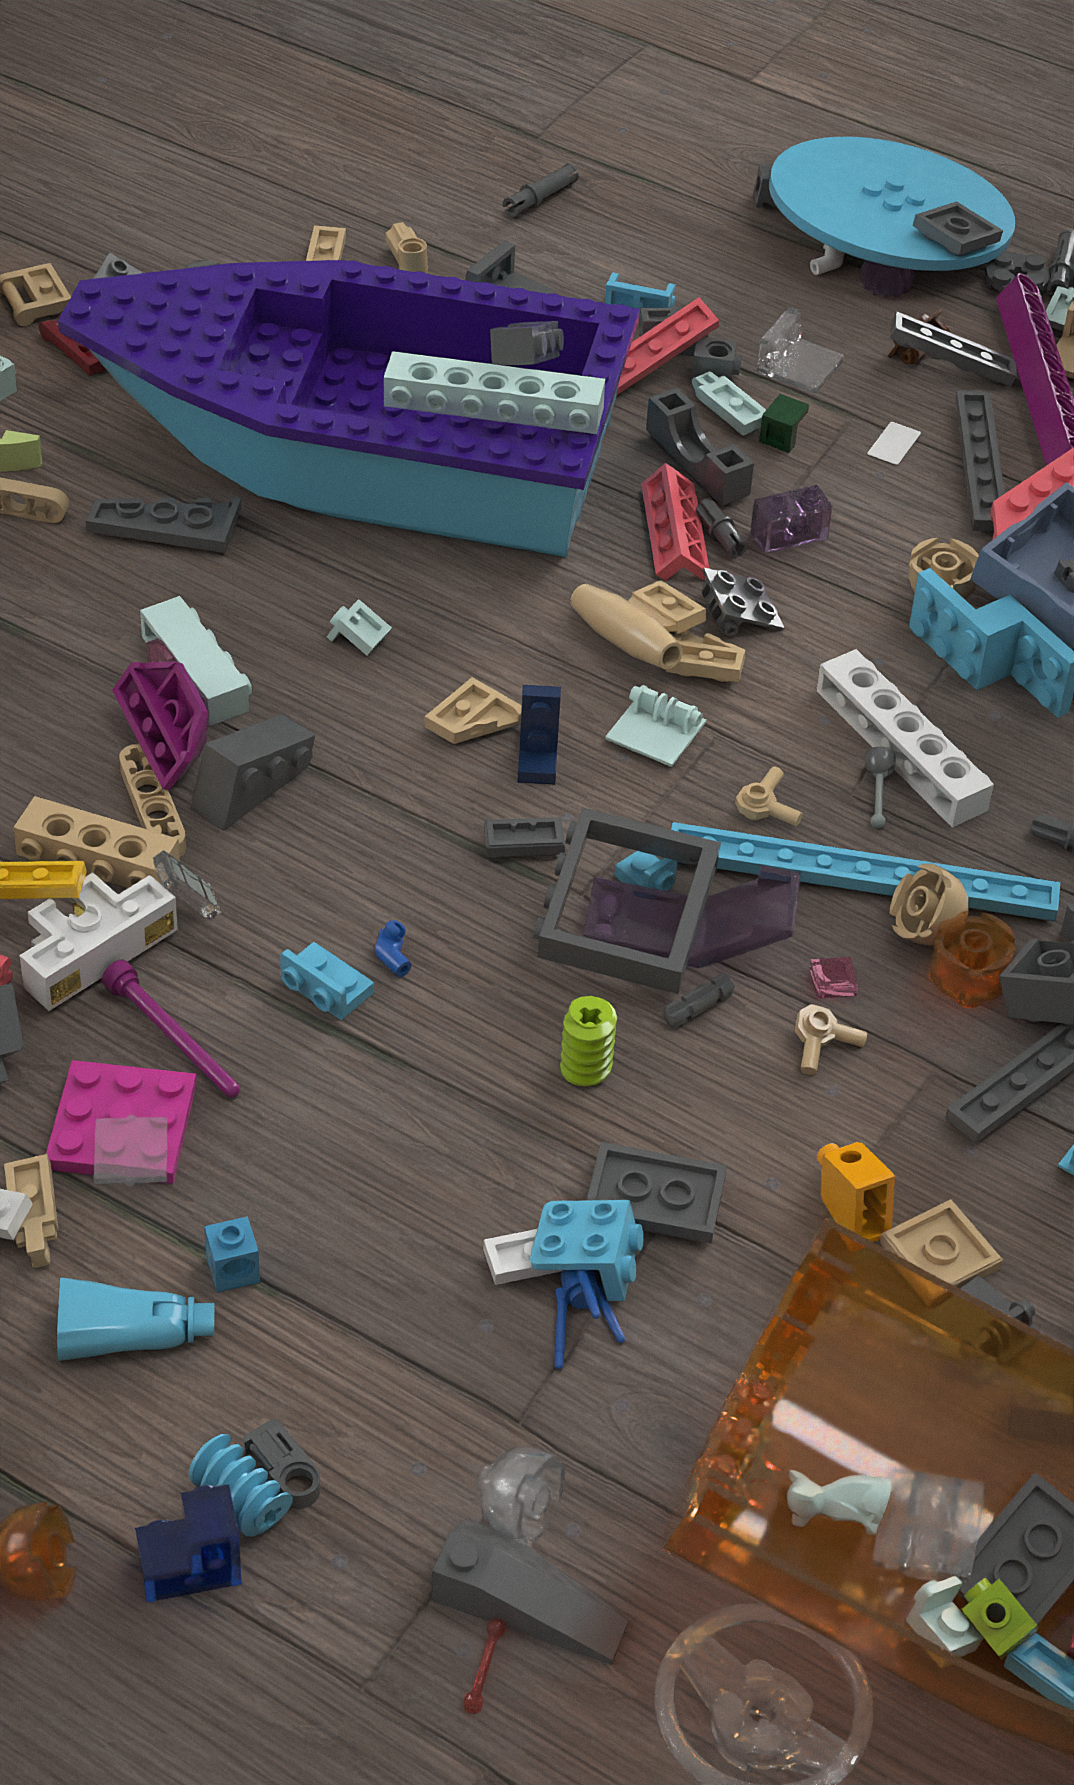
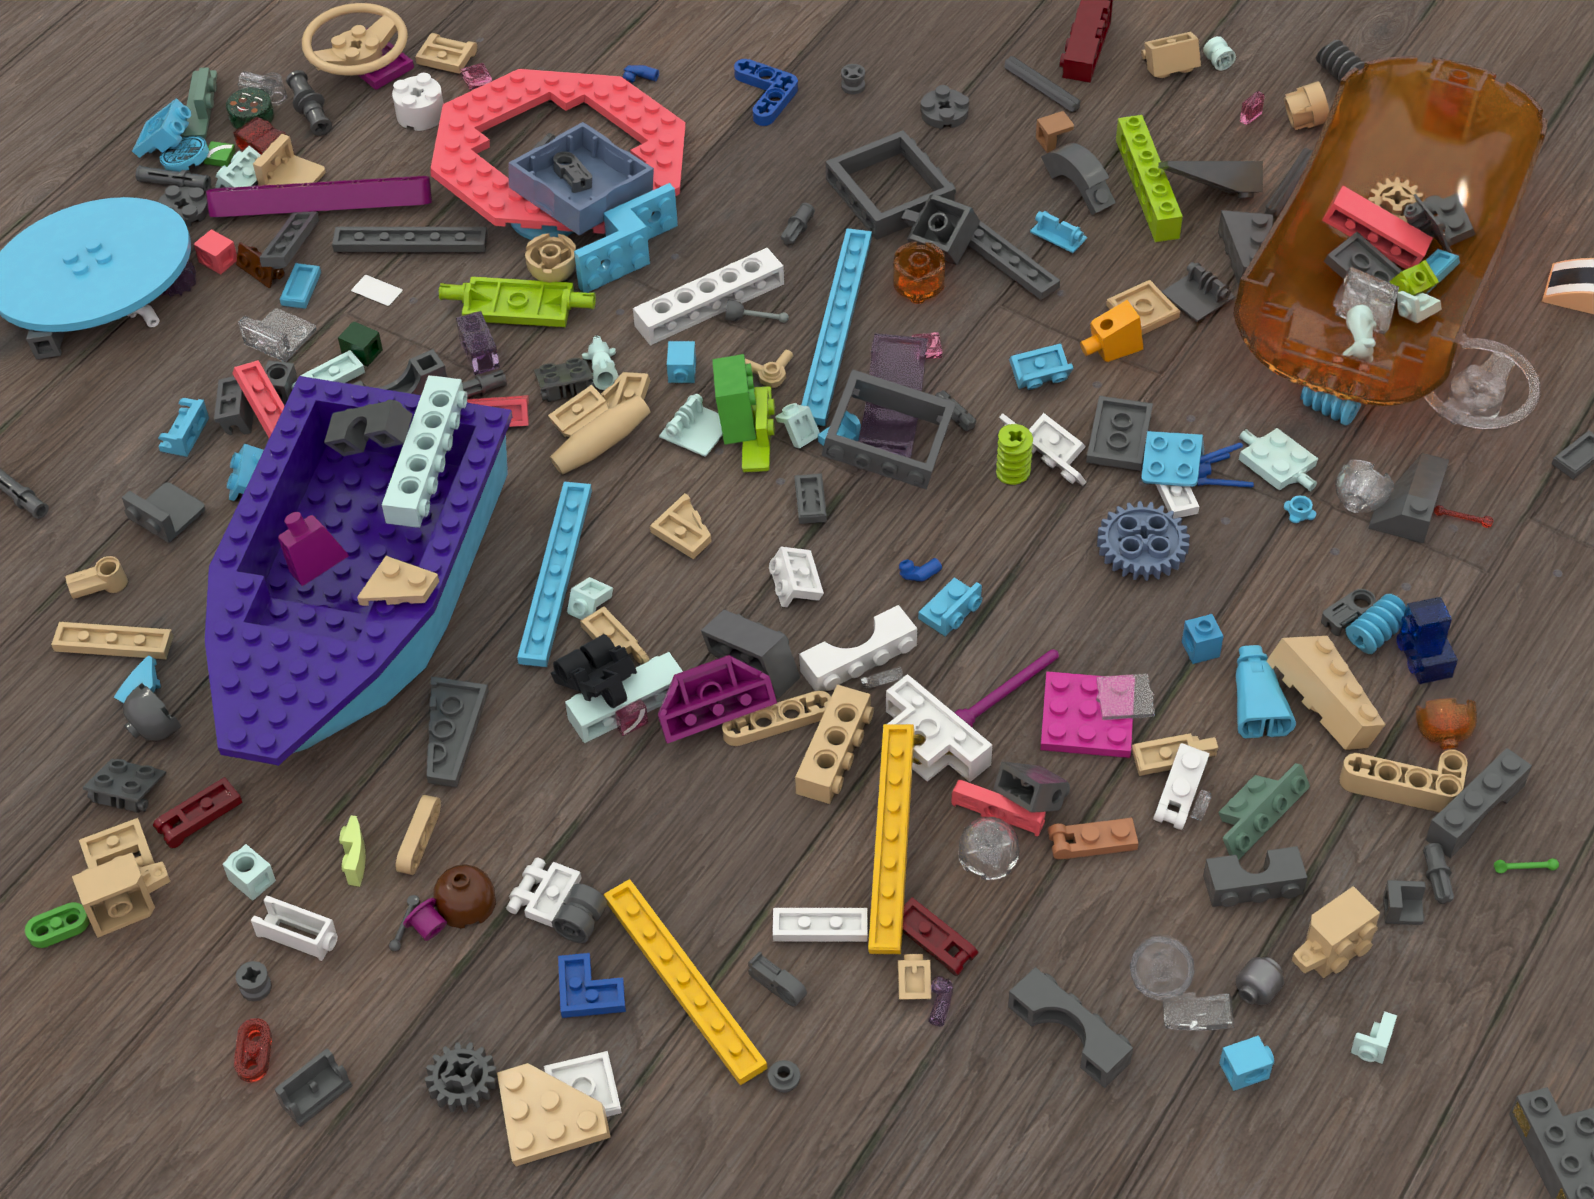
camera: 85 degrees left, 5 degrees up
(118, 1393) = (1328, 689): none -> tan wedge
(214, 613) = (596, 670): none -> black plate
(270, 906) = (830, 666): none -> white arch
(288, 652) = (605, 623): none -> tan hinge
(290, 386) = (398, 583): none -> tan wing
(365, 330) = (309, 548): none -> magenta torso
(384, 818) = (795, 575): none -> white bracket
(398, 1202) = (1143, 540): none -> sand blue gear
(404, 599) = (554, 575): none -> medium azure plate
(497, 1409) = (1300, 509): none -> medium azure plate
(539, 734) = (719, 490): dark blue bracket -> none
(606, 1402) = (1278, 459): none -> light aqua plate
(621, 1099) = (1056, 446): none -> white bracket
(655, 781) = (757, 452): none -> lime bracket
(660, 811) = (799, 424): none -> light aqua bracket
(692, 744) = (735, 398): none -> bright green wedge
(760, 633) = (603, 366): none -> light aqua animal
(770, 708) = (681, 362): none -> medium azure brick
(789, 1101) = (1040, 366): none -> medium azure bracket
(818, 1027) = (978, 352): tan piece -> none
(876, 555) = (518, 300): none -> lime plate
(891, 377) = (300, 285): none -> medium azure tile
(925, 902) = (879, 287): tan cylinder -> none
(933, 295) = (215, 251): none -> coral brick
(957, 228) = (151, 218): dark grey plate -> none

